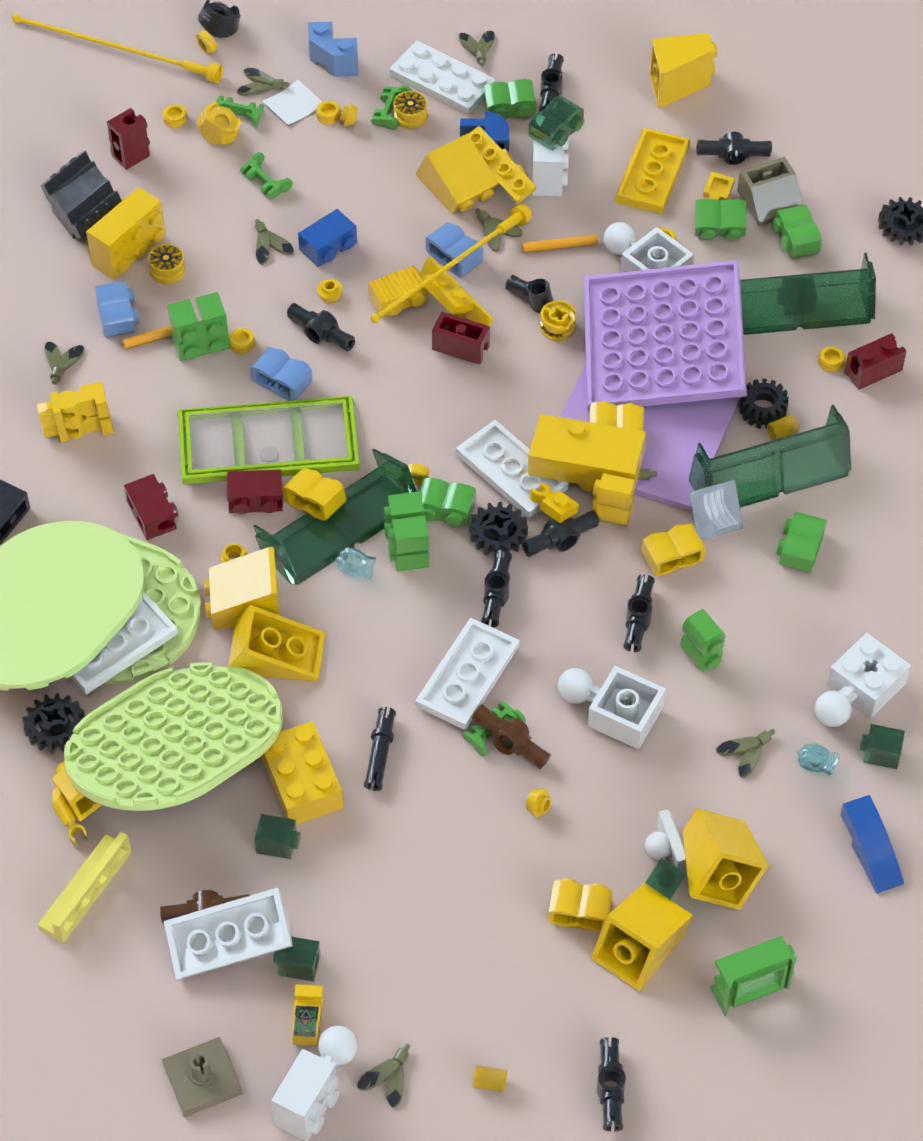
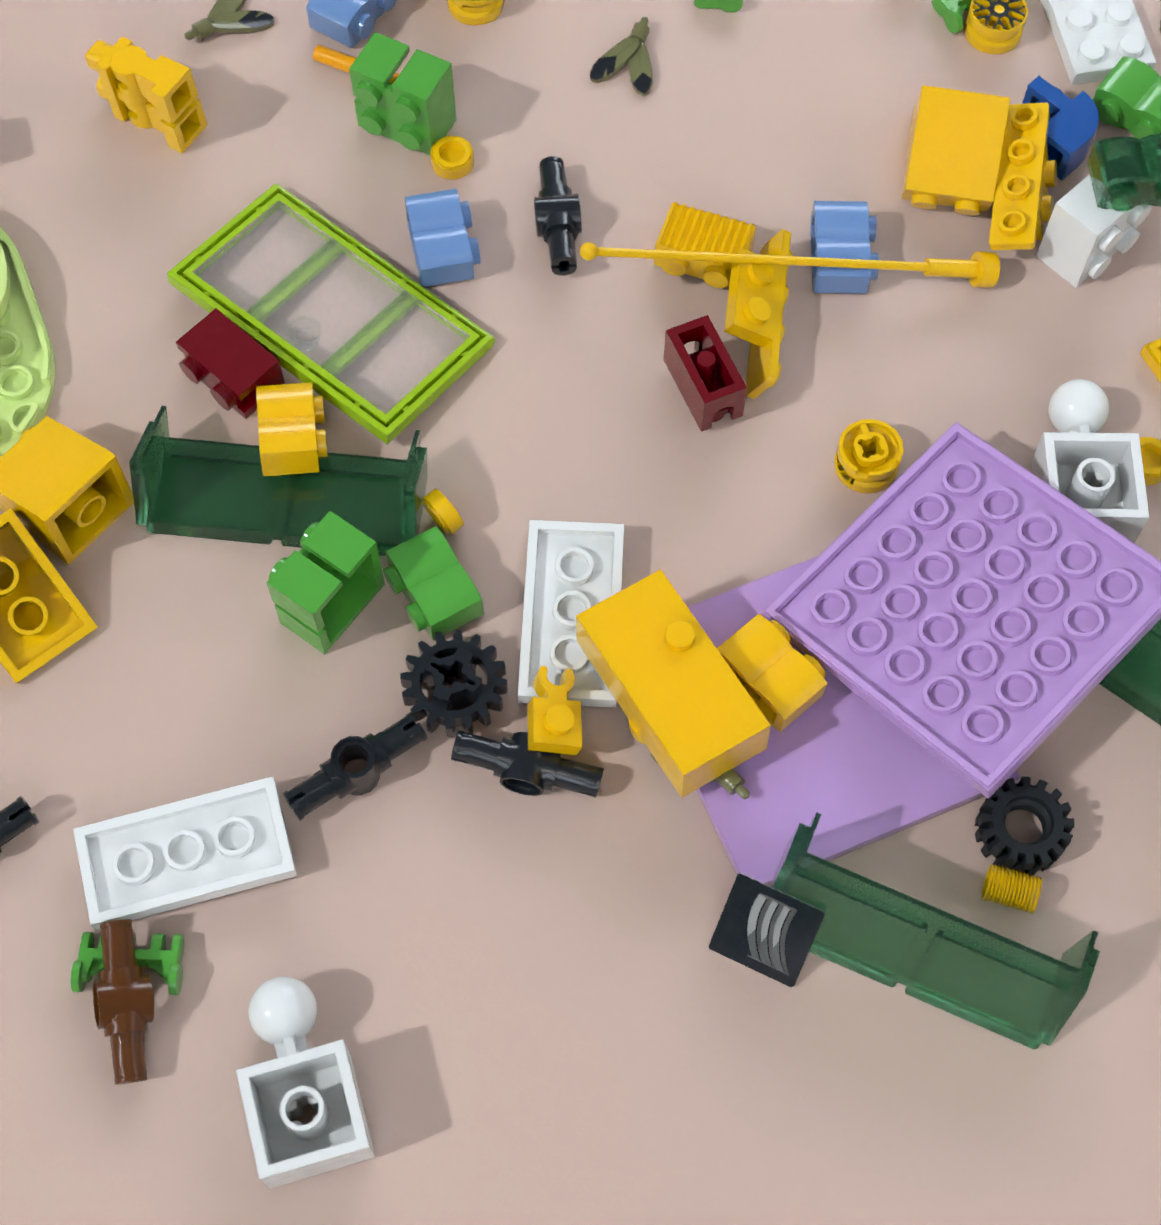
camera: 45 degrees right, 10 degrees up
(150, 506) = (95, 279): dark red brick -> none
(232, 550) = (109, 418): yellow plate -> none
(326, 237) = (699, 105): blue brick -> none
(329, 290) = (627, 186): yellow plate -> none
(355, 563) = (231, 567): clear light blue animal -> none
(490, 226) = (932, 248): olive piece -> none
(534, 291) = (878, 387): black pin -> none
(538, 802) = (48, 1135): yellow plate -> none
(560, 243) = (996, 351): light orange bar -> none
(614, 499) = (638, 782): yellow brick -> none
(639, 623) = (472, 999): black pin -> none
(673, 549) = (647, 930): yellow brick -> none
(703, 640) = (515, 1119): bright green brick -> none
(802, 541) = (843, 1094): bright green brick -> none

